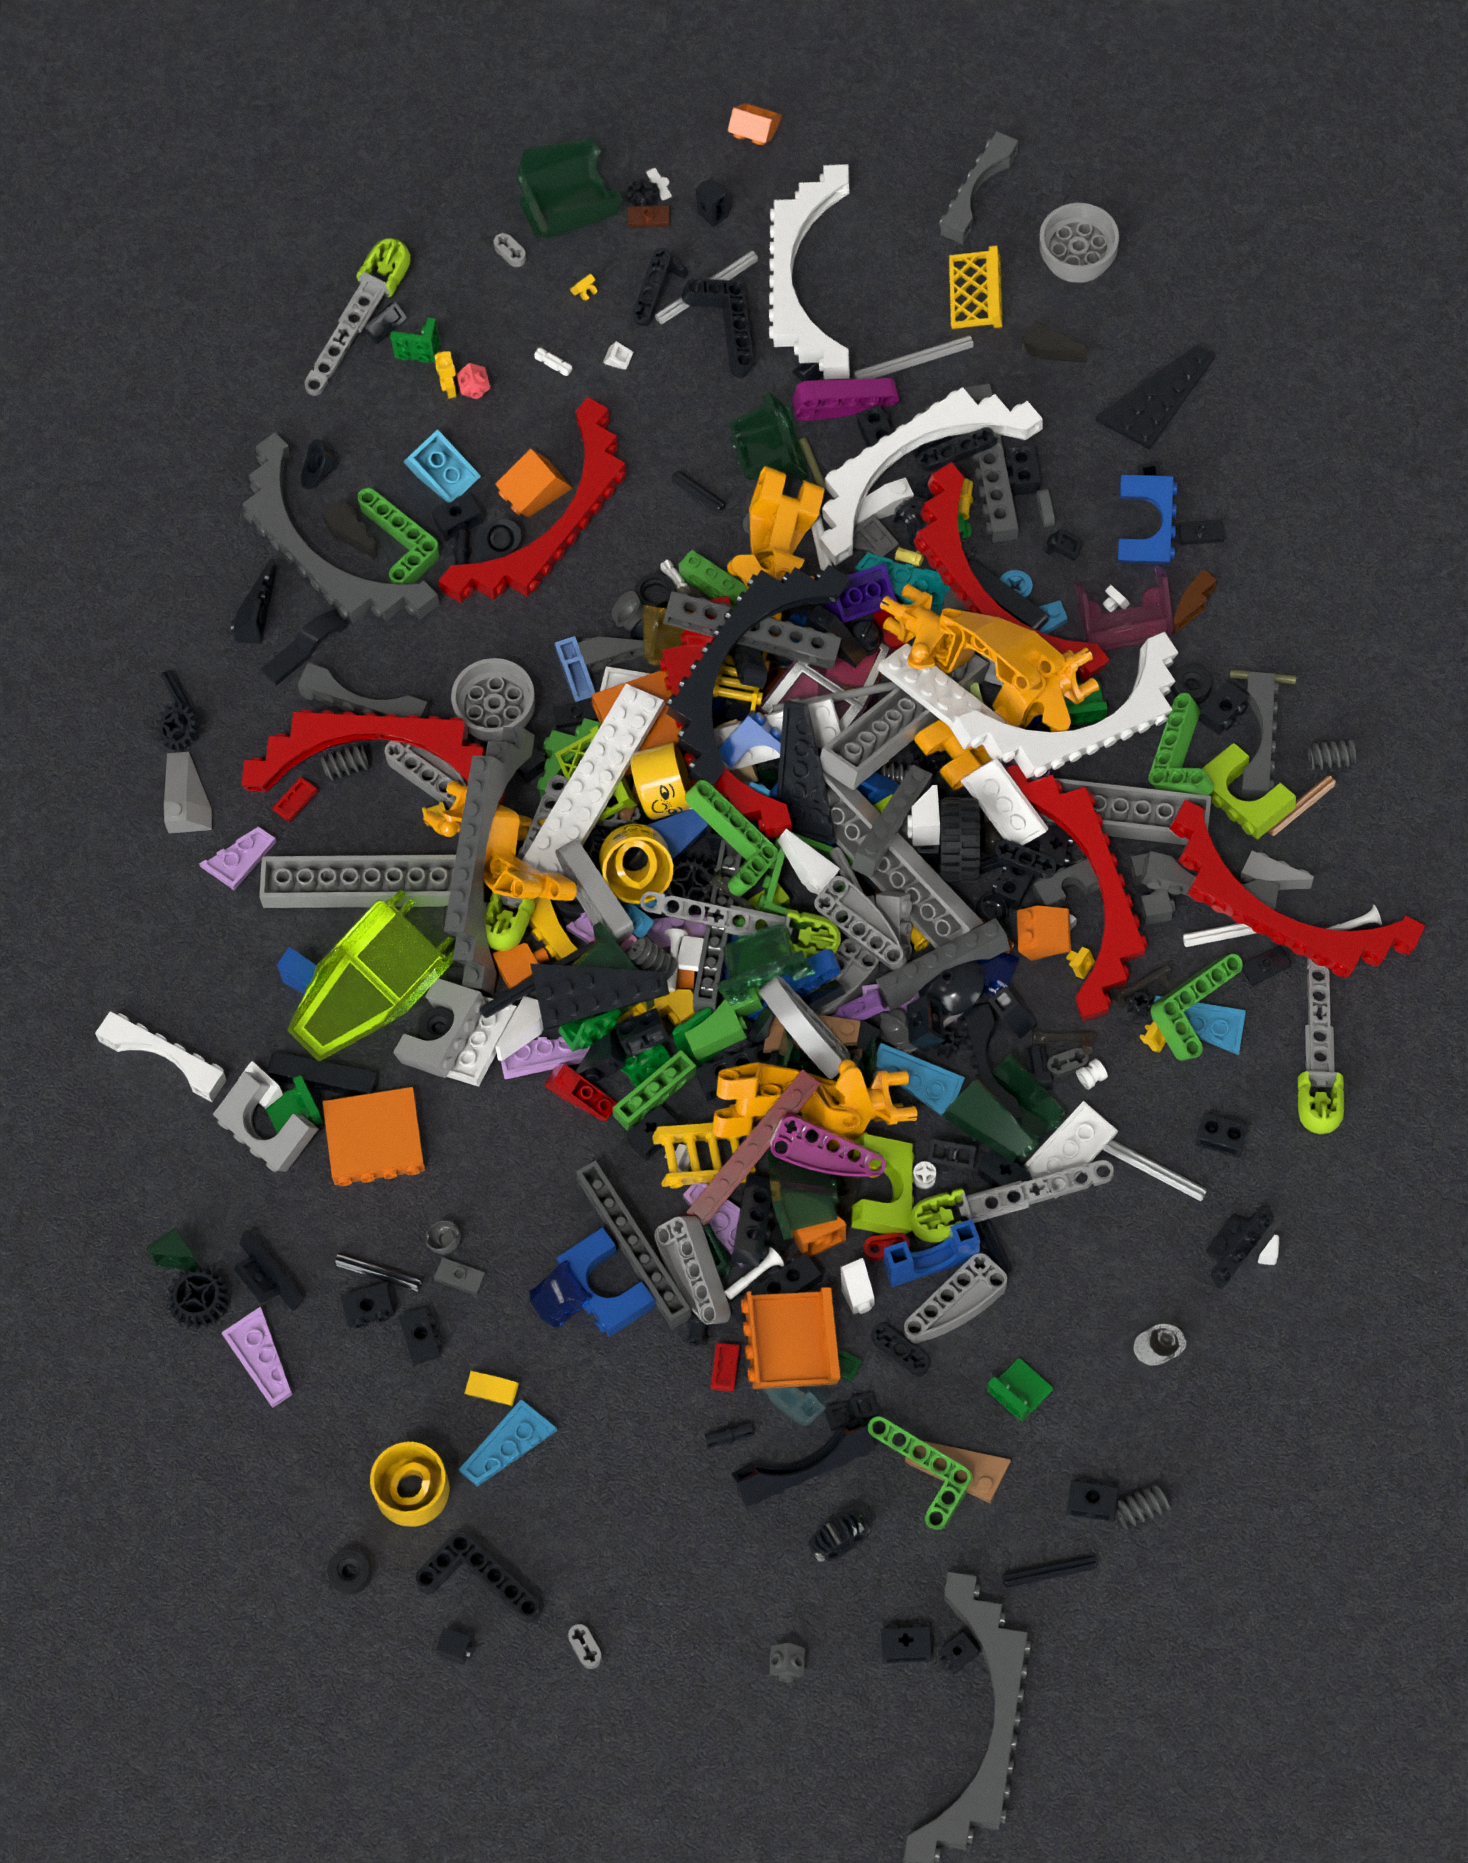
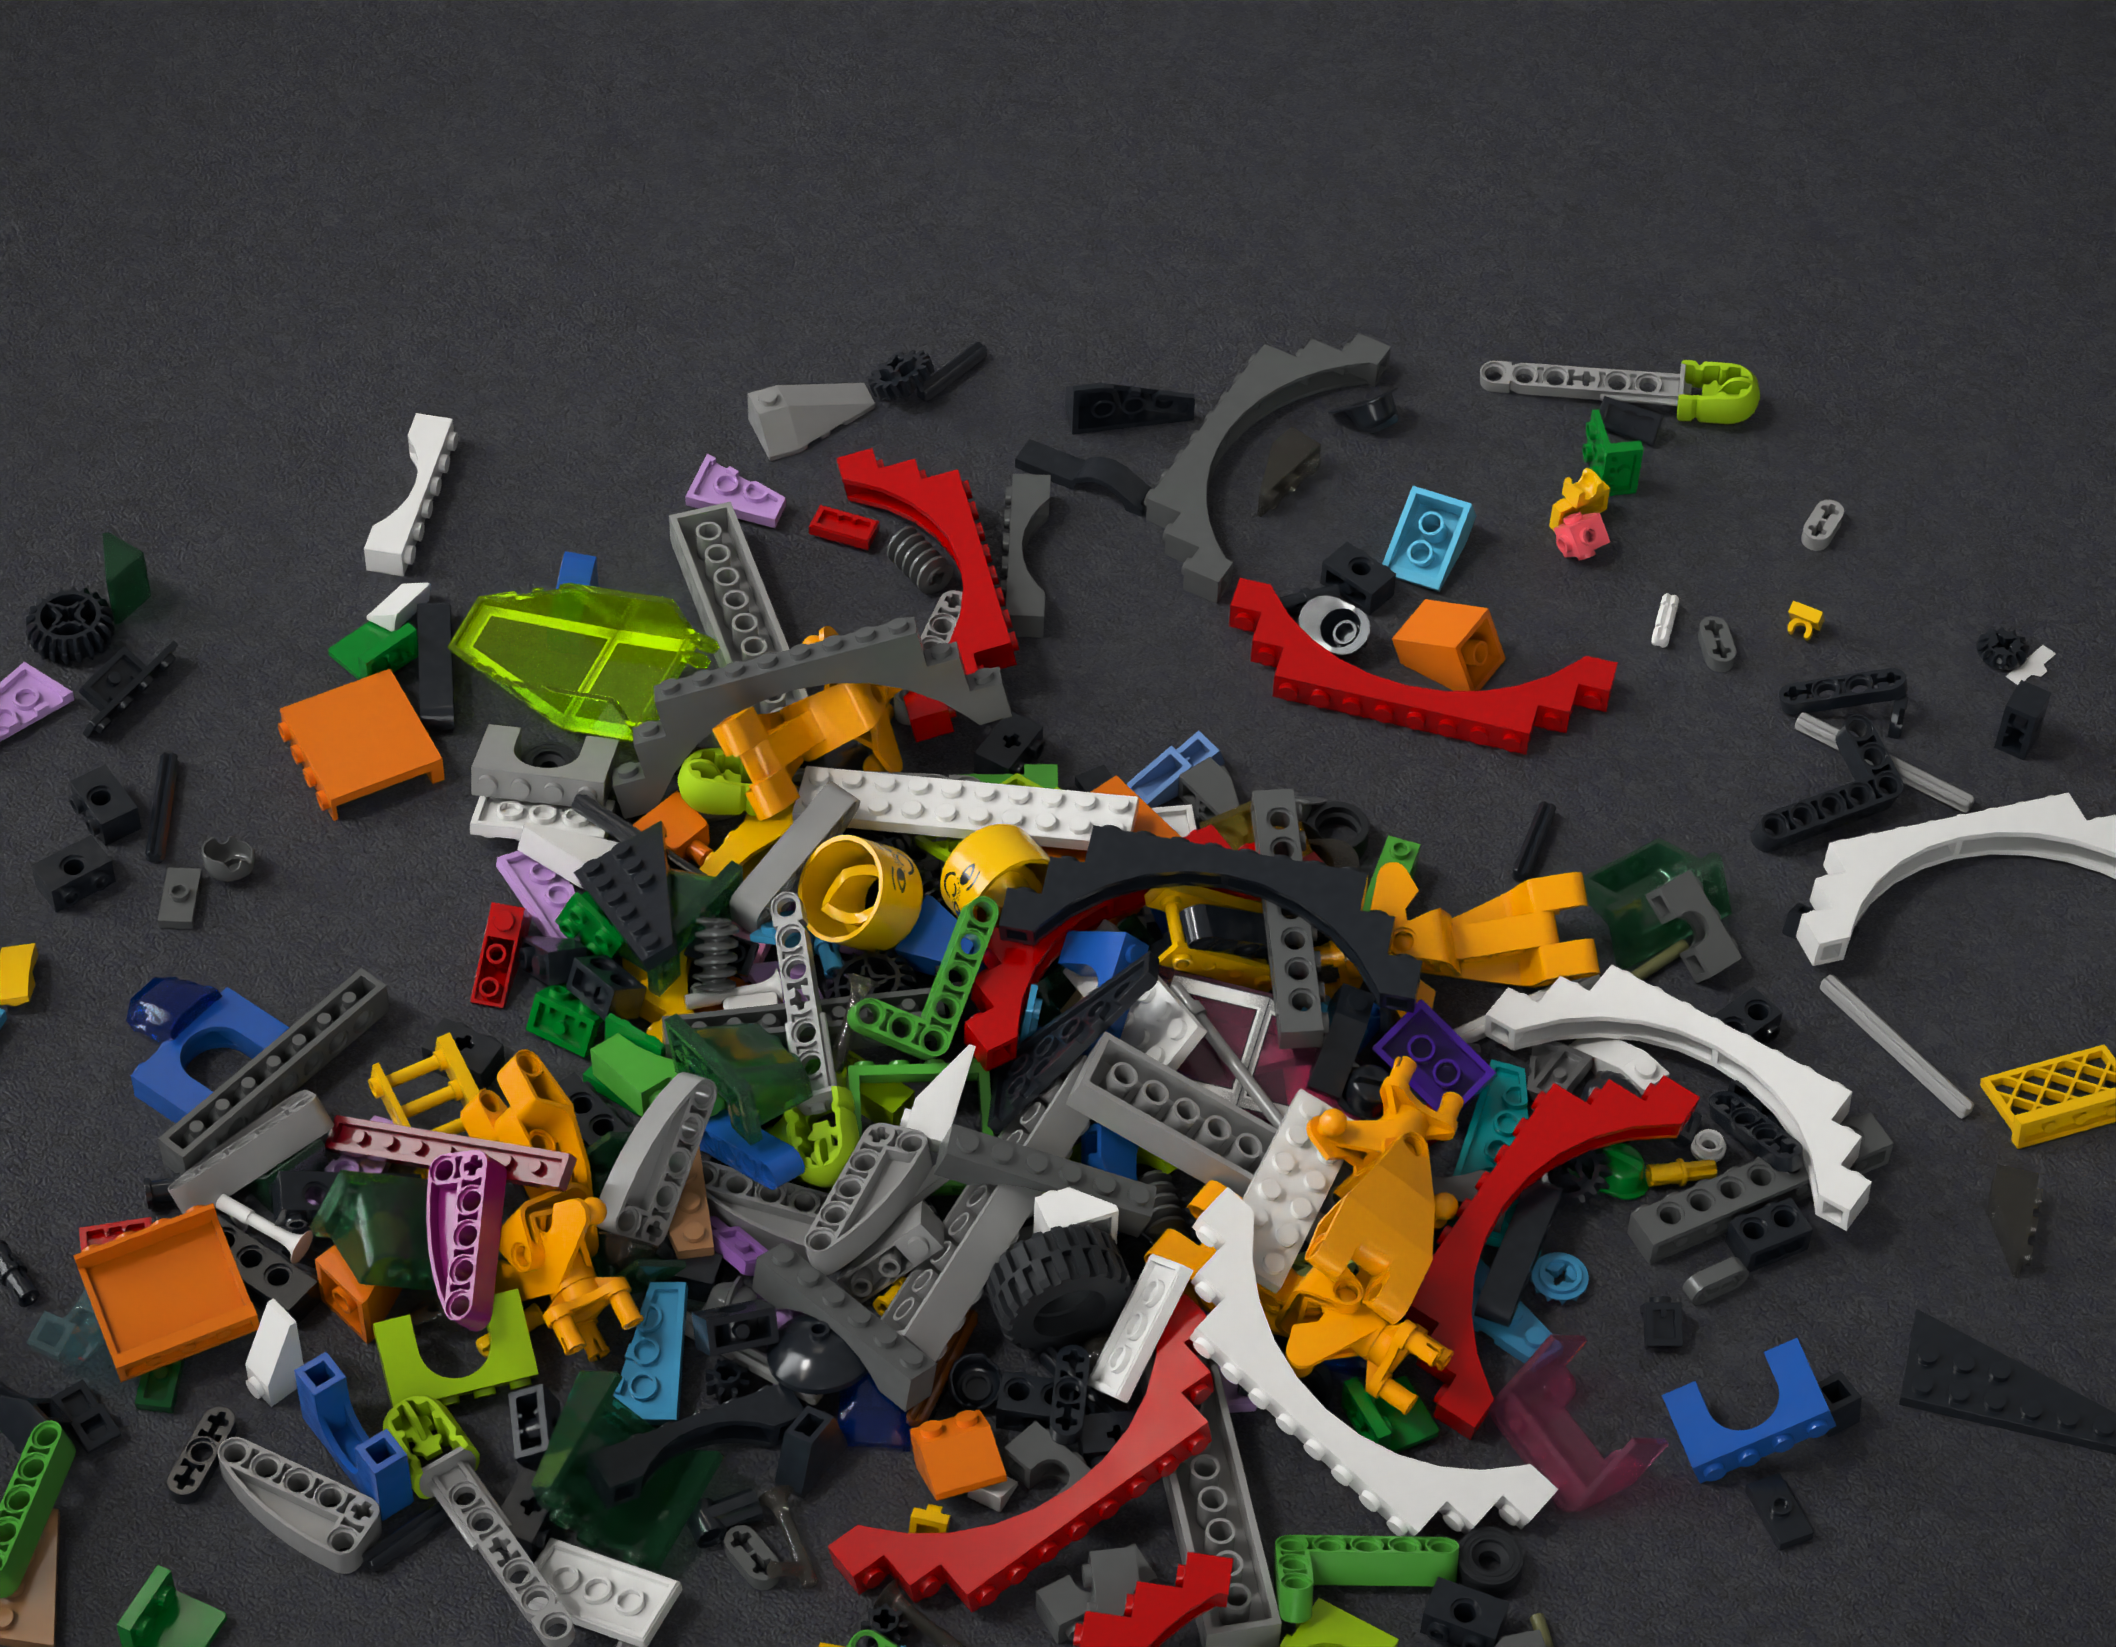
camera: 65 degrees right, 15 degrees down
(237, 1113) = (311, 645): light grey arch -> none
(403, 535) = (1291, 556): bright green beam -> none
(479, 680) = (1076, 686): light grey wheel -> none
(564, 187) = (1950, 544): clear green windscreen -> none
(582, 341) = (1723, 643): none -> dark grey beam
(618, 356) = (1714, 692): white slope -> none
(648, 216) = (1966, 665): copper plate -> none
(654, 1090) = (521, 1028): bright green brick -> none
(673, 574) = (1373, 852): white axle -> none
(682, 1158) = (423, 1088): white tile -> none
(791, 424) = (1711, 945): none -> dark grey arch
(814, 1000) = (725, 1177): black piece -> none
(842, 397) = (1775, 965): magenta beam -> none
(882, 1242) = (368, 1393): red plate -> none
(925, 1170) = (495, 1401): white wheel -> none
(1089, 1075) = (739, 1591): white wheel -> none
(1115, 599) = (1596, 1416): white tile -> none
(1194, 600) = (1640, 1524): reddish brown slope -> none

